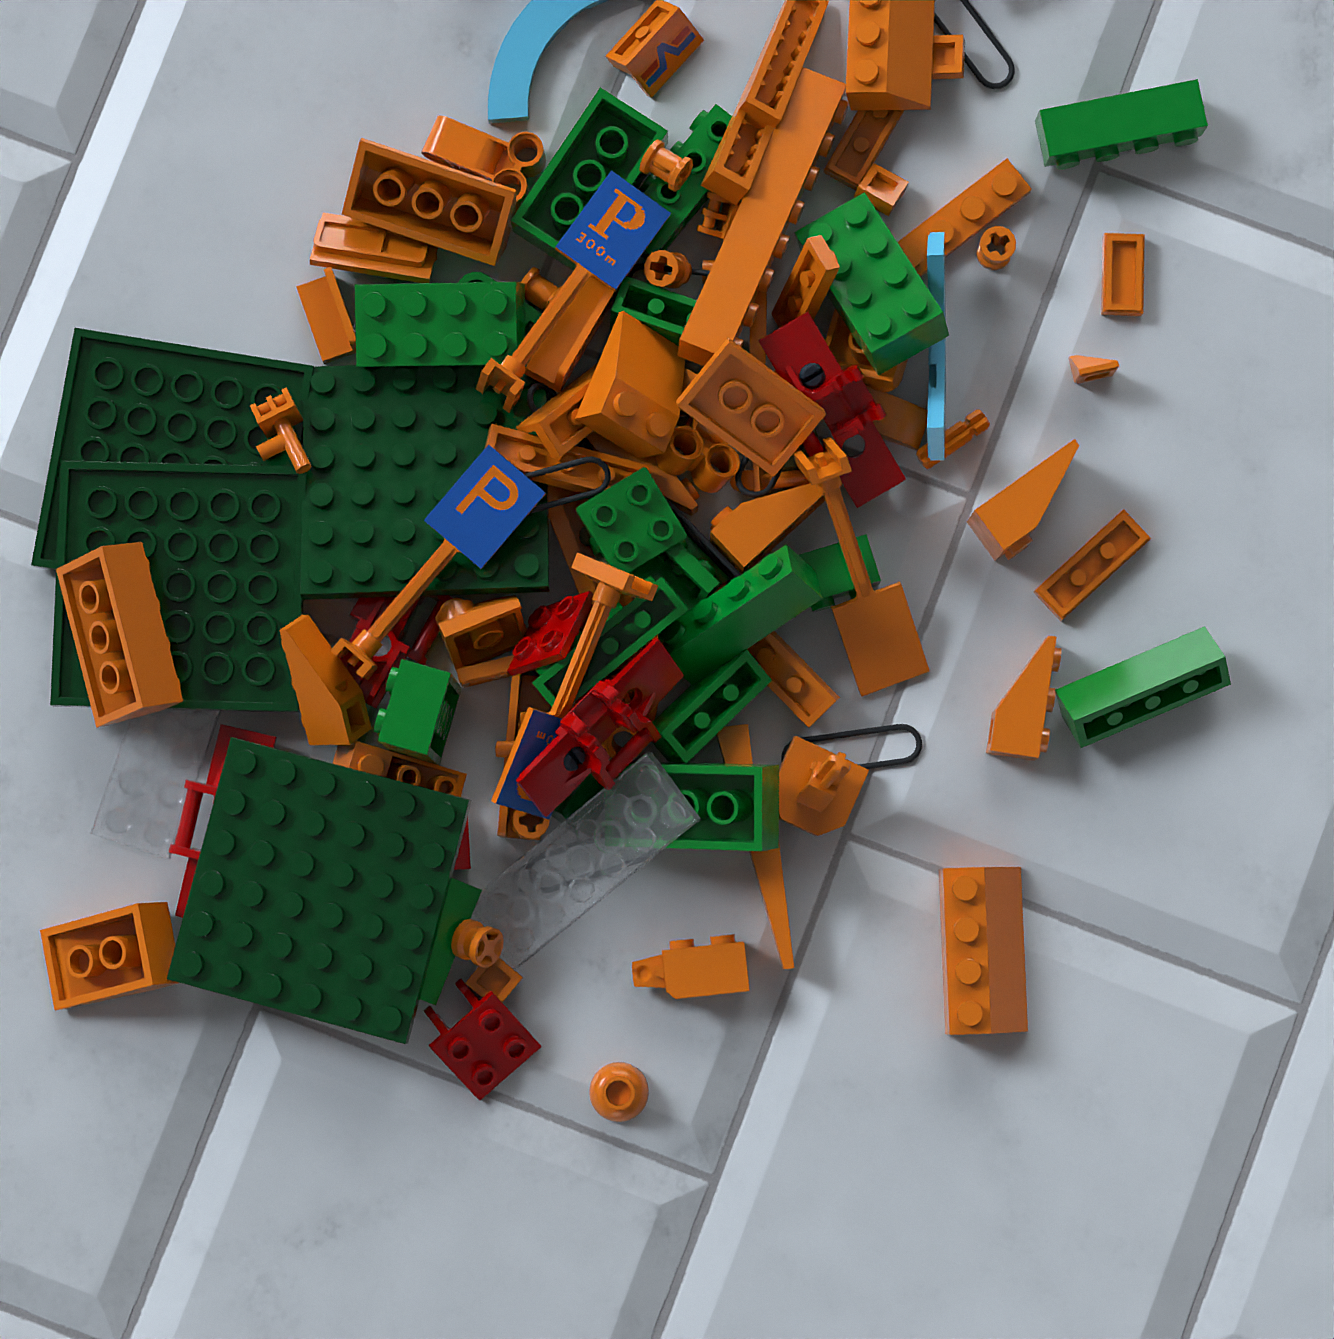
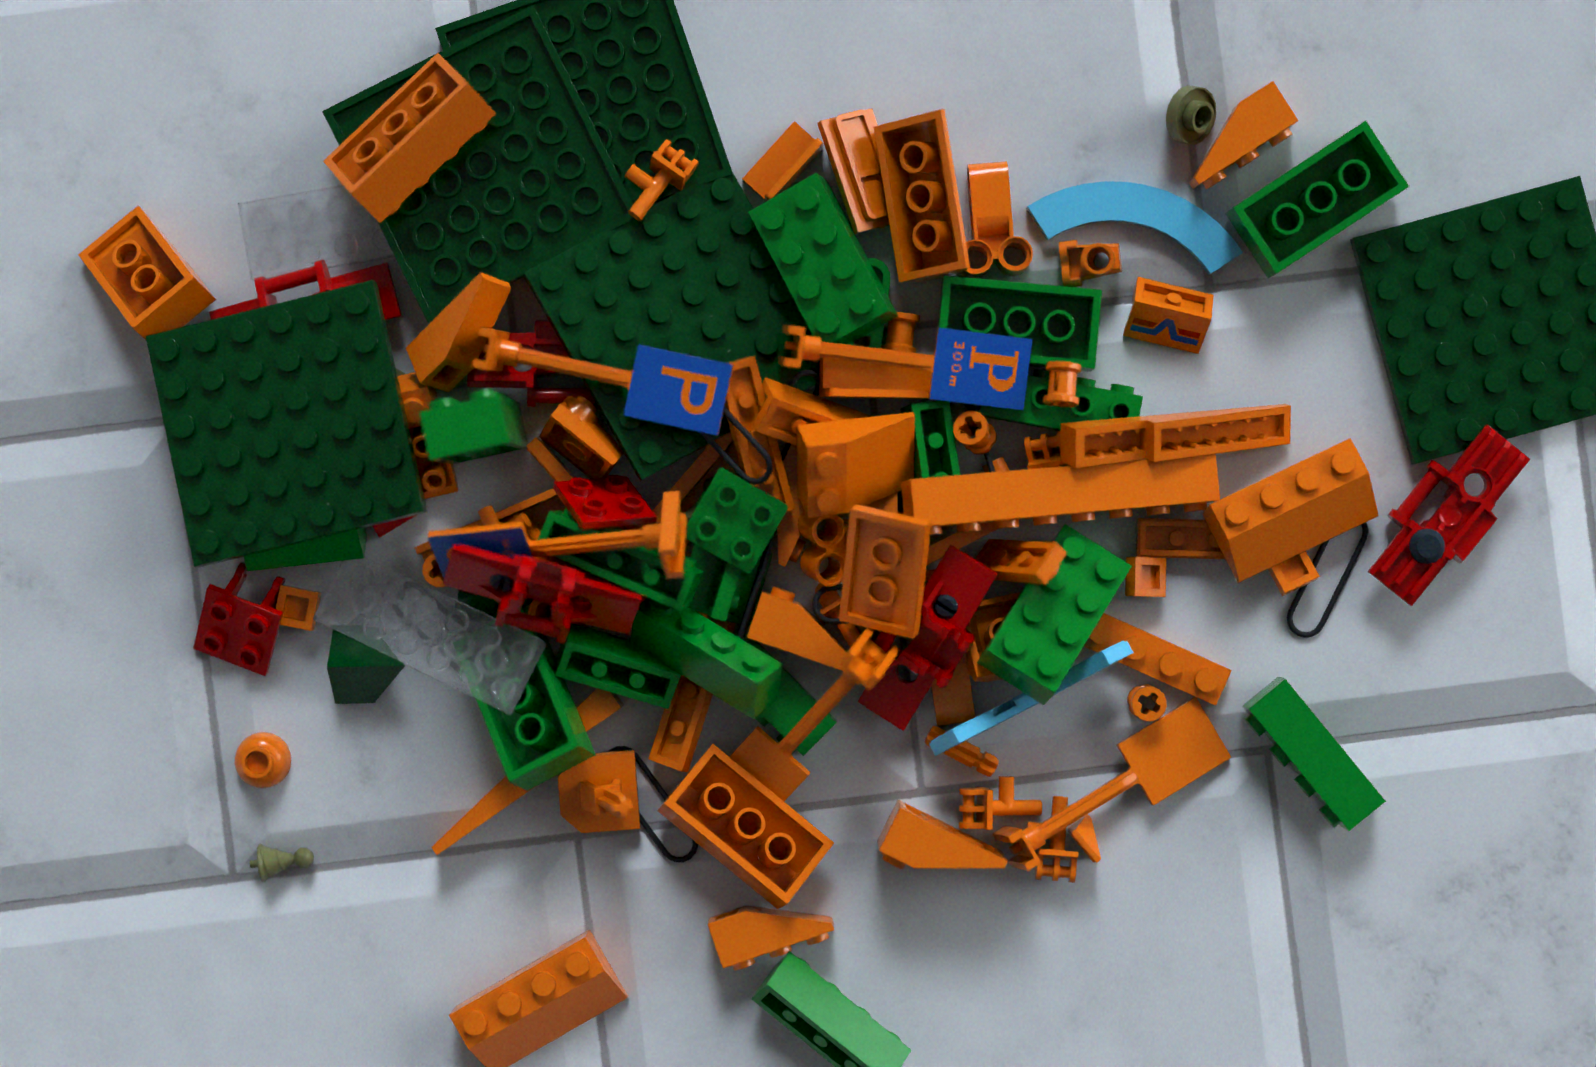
camera: 65 degrees right, 5 degrees up
(477, 943) = (316, 578): orange wheel -> none
(564, 101) = (1079, 261): none -> orange plate
(584, 950) = (358, 671): none -> dark green slope
(696, 970) = (394, 771): orange hinge -> none
(719, 1129) = (273, 861): none -> olive piece
(919, 669) = (746, 827): none -> orange slope
(1014, 446) = (987, 807): none -> orange arm
(1054, 264) = (1158, 758): none -> orange piece
(1090, 400) = (1056, 850): none -> orange arm
(1092, 565) = (916, 925): orange tile -> none
(1122, 274) = (1183, 821): orange tile -> none

